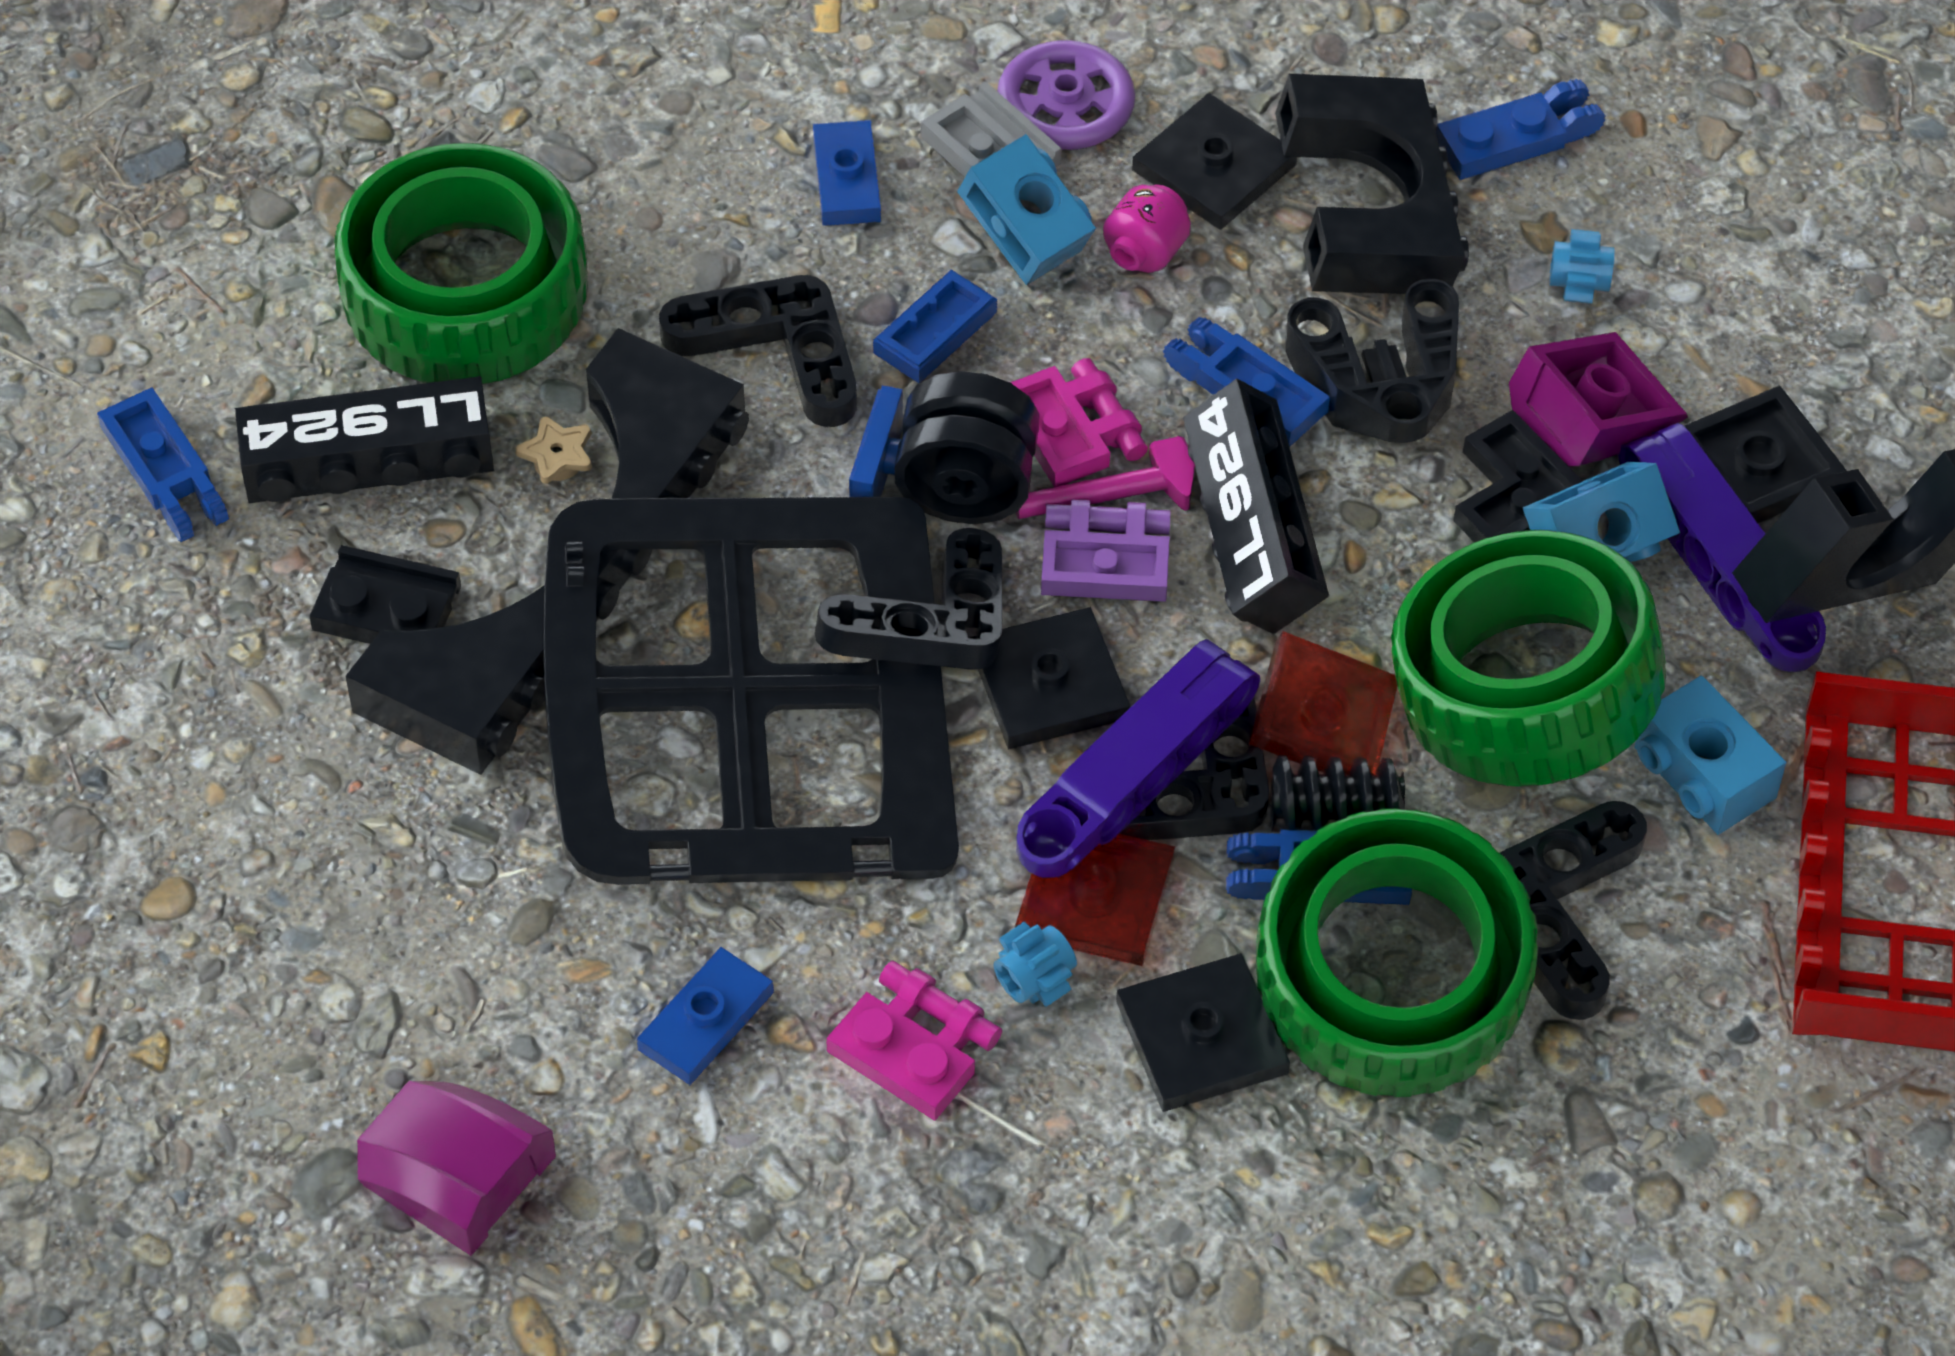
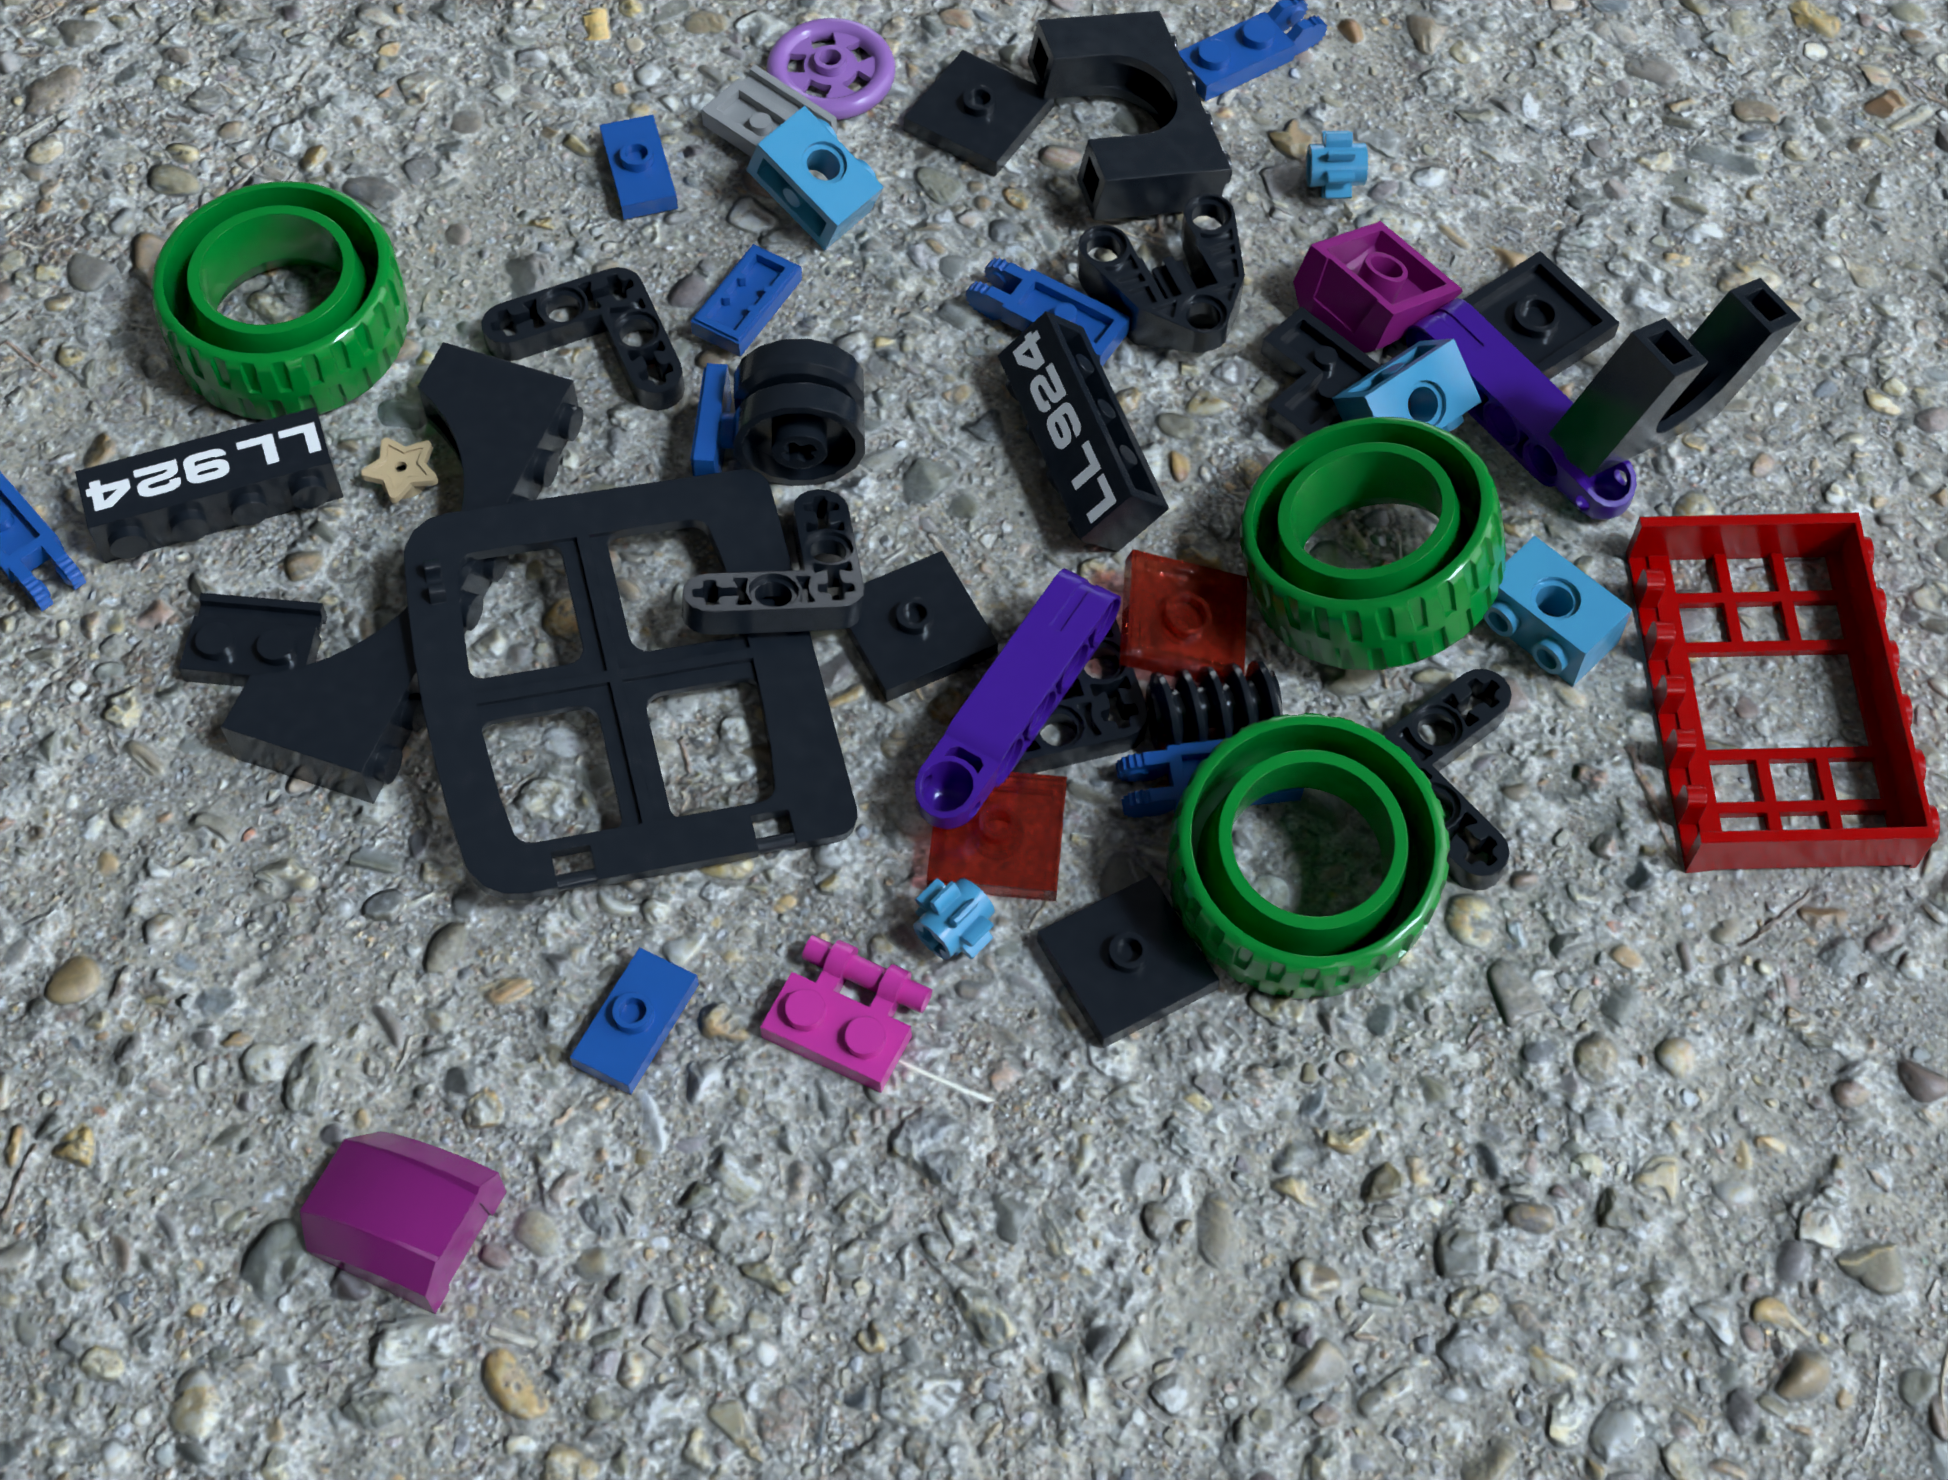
camera: 10 degrees left, 5 degrees up
(1067, 440) = (892, 392): dark pink plate -> none
(1106, 563) = (947, 506): medium lavender plate -> none
(1147, 228) = (931, 180): dark pink head -> none
(1170, 471) = (992, 409): dark pink piece -> none

